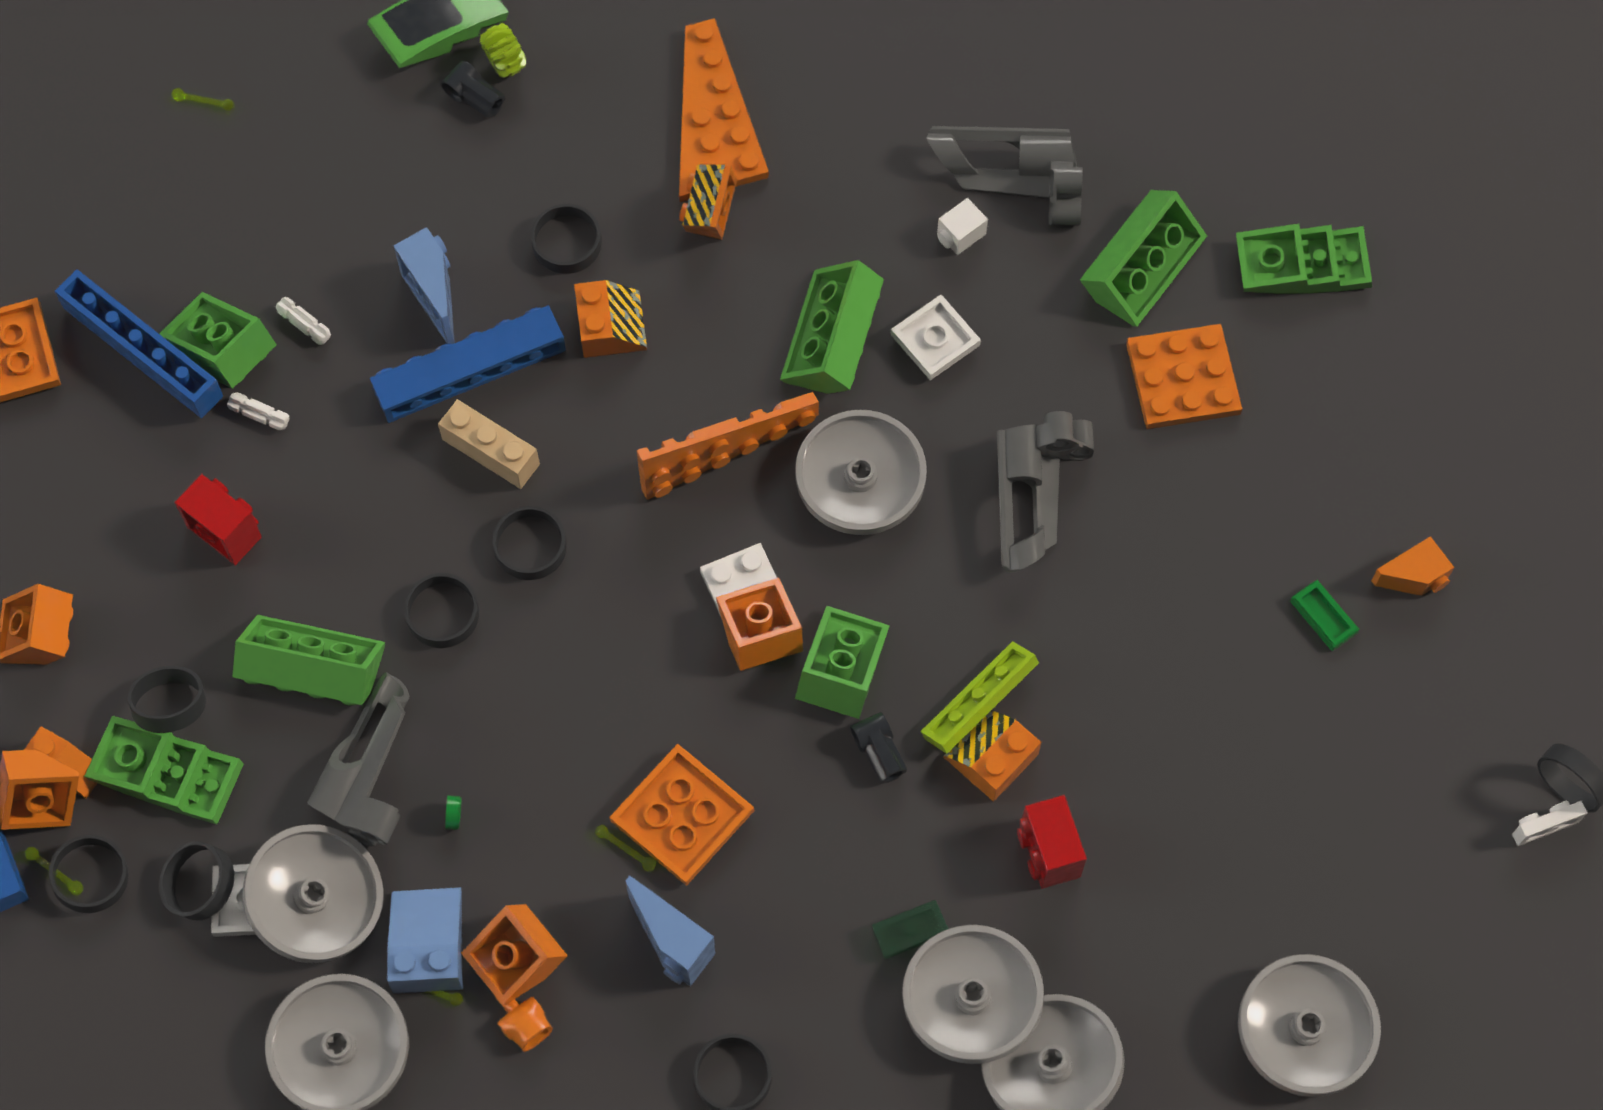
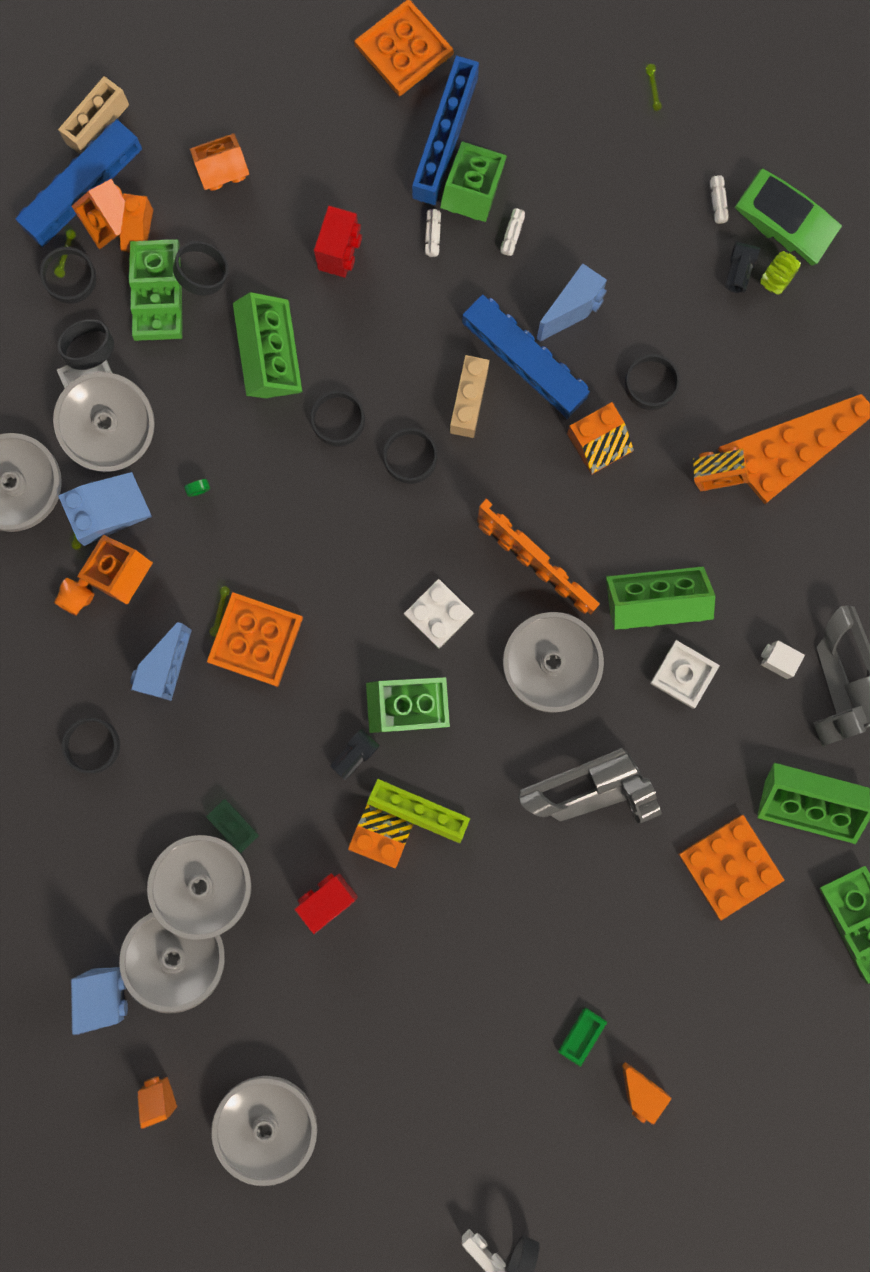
camera: 70 degrees right, 15 degrees up
(346, 787) = (191, 410): dark grey panel -> none
(378, 83) = (719, 199): none -> white axle
(760, 624) = (410, 636): orange slope -> none

